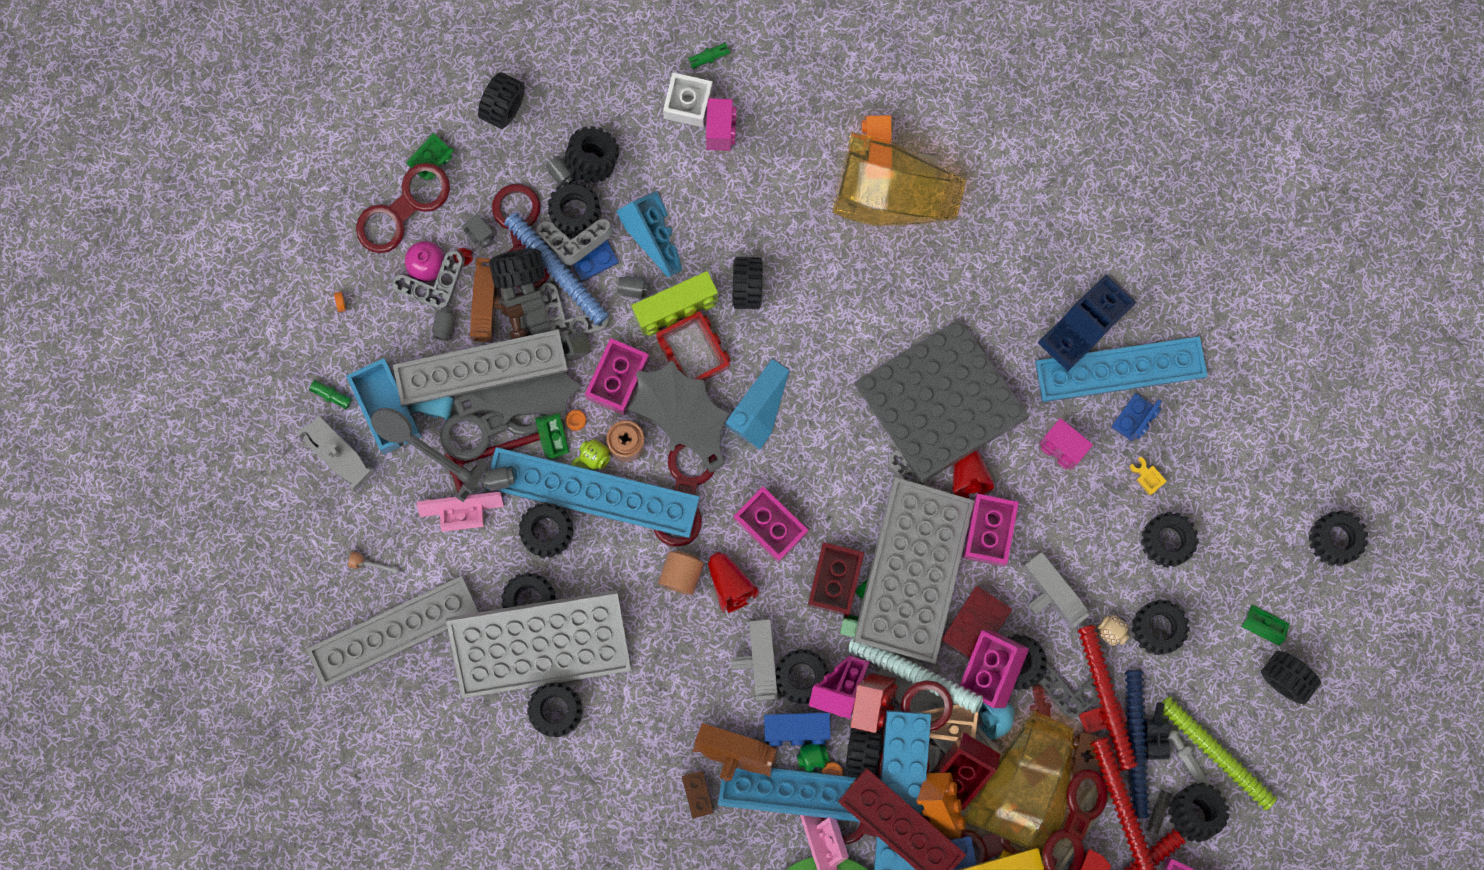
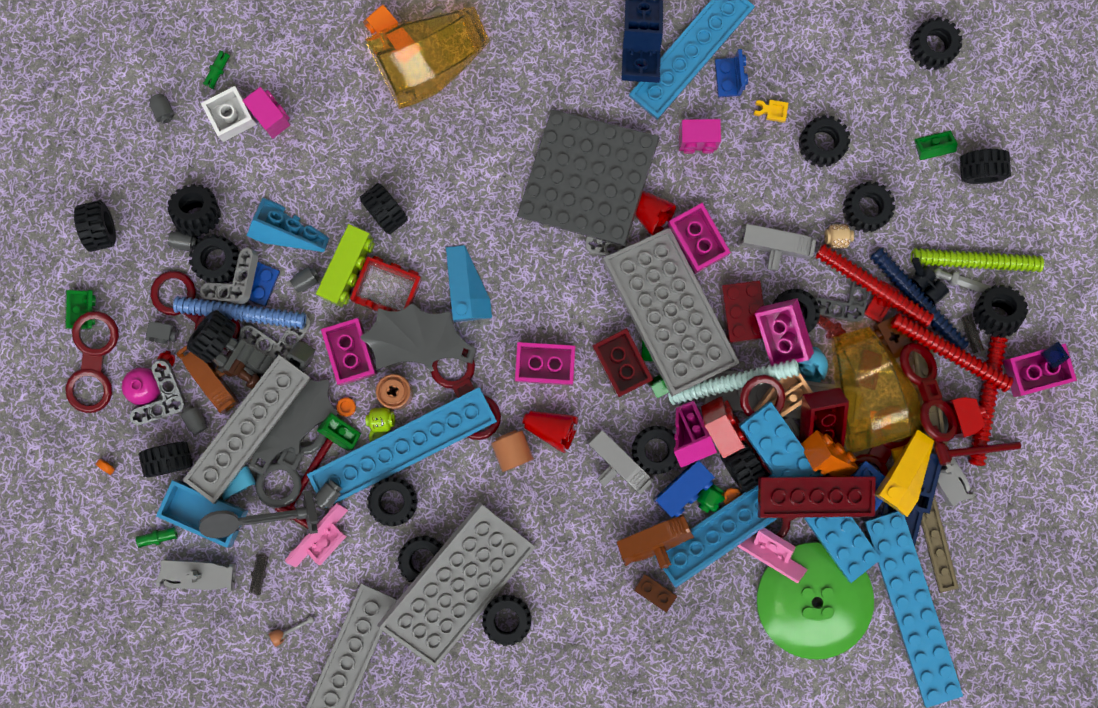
camera: 40 degrees left, 5 degrees up
(385, 495) = (258, 574): none -> clear smoke pin
(393, 336) = (165, 459): none -> black tyre
(637, 50) = (161, 108): none -> dark grey brick

